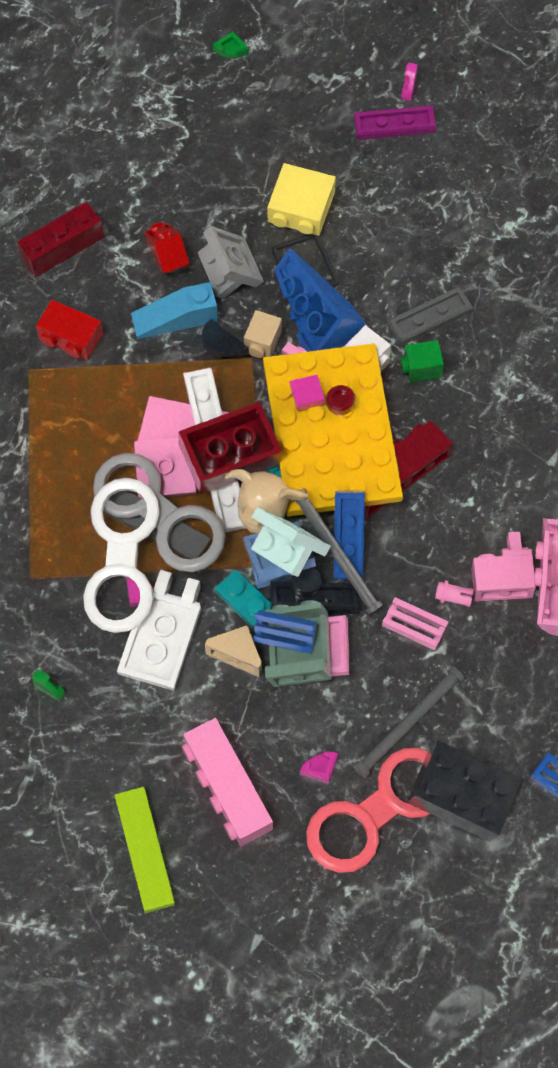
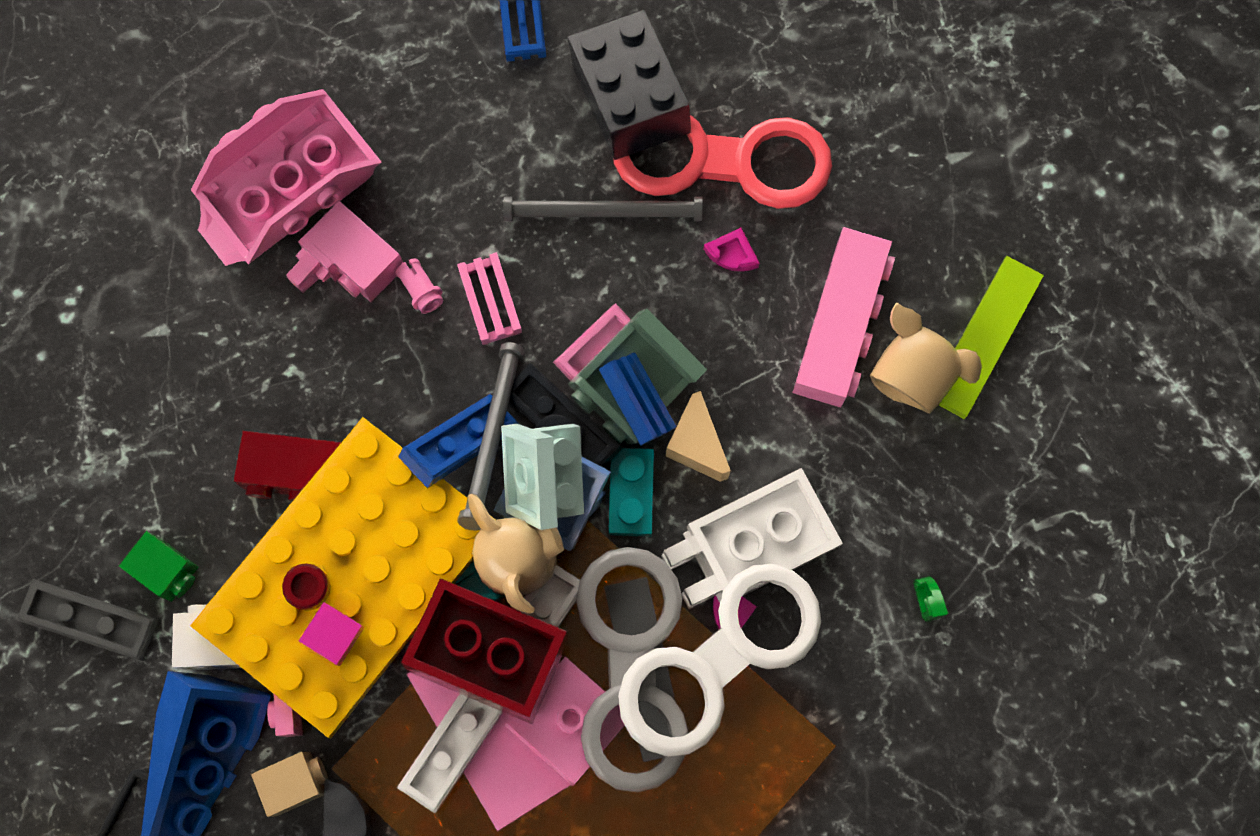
camera: 135 degrees left, 10 degrees up
(160, 785) = (921, 364): none -> tan piece

